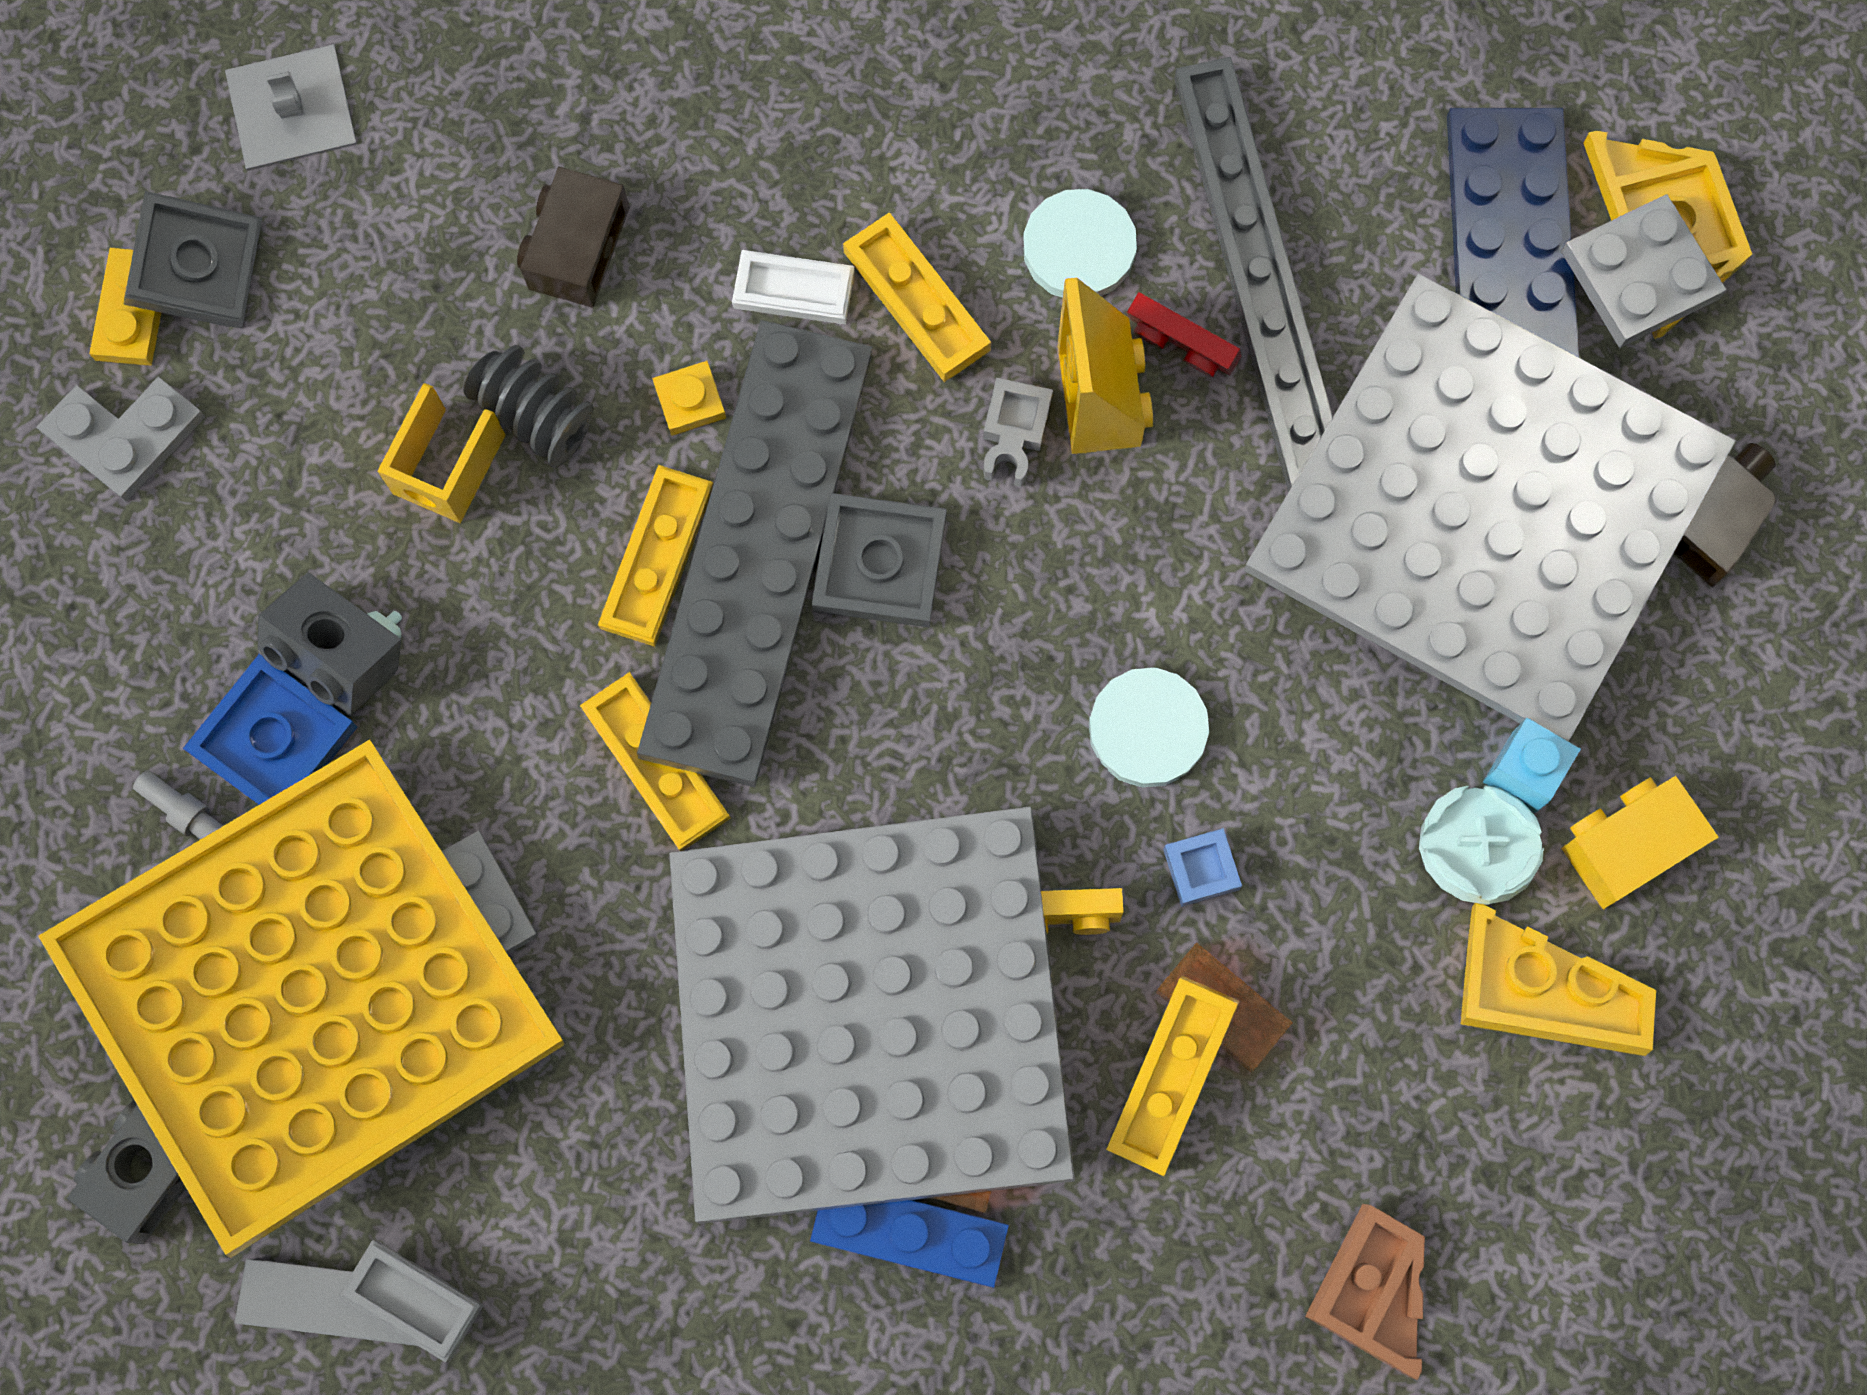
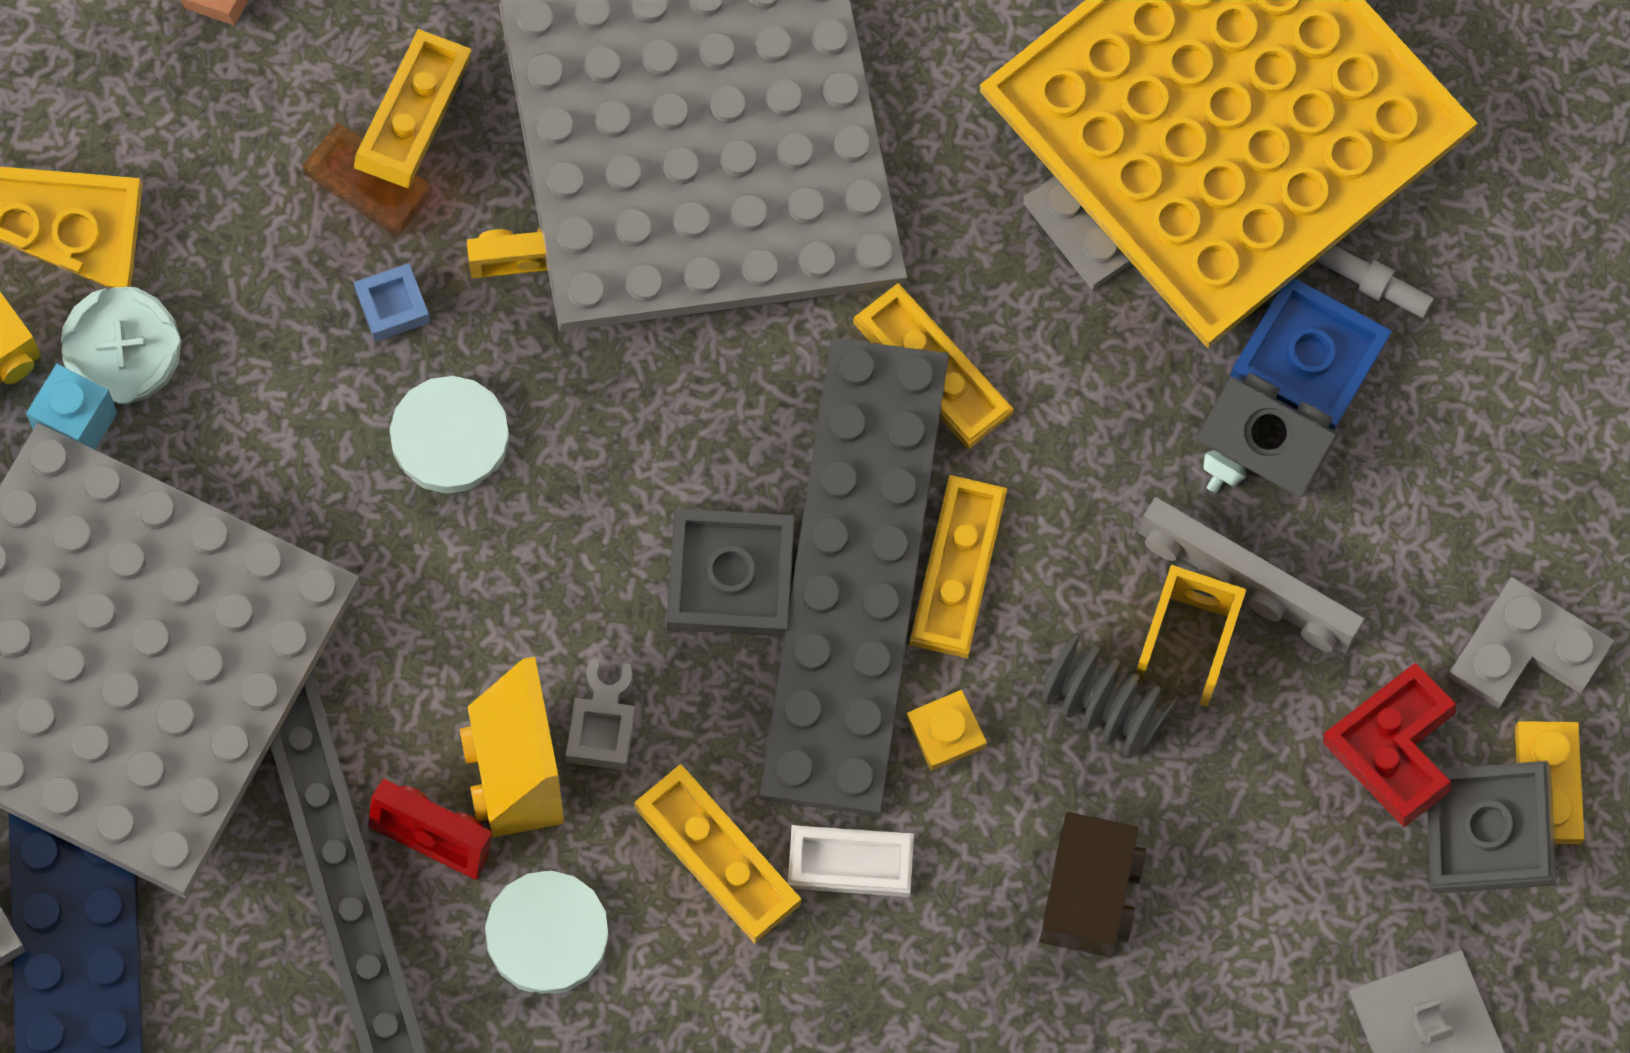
camera: 170 degrees right, 5 degrees down
(281, 343) = (1381, 740): none -> red plate
(358, 496) = (1270, 590): none -> light grey plate

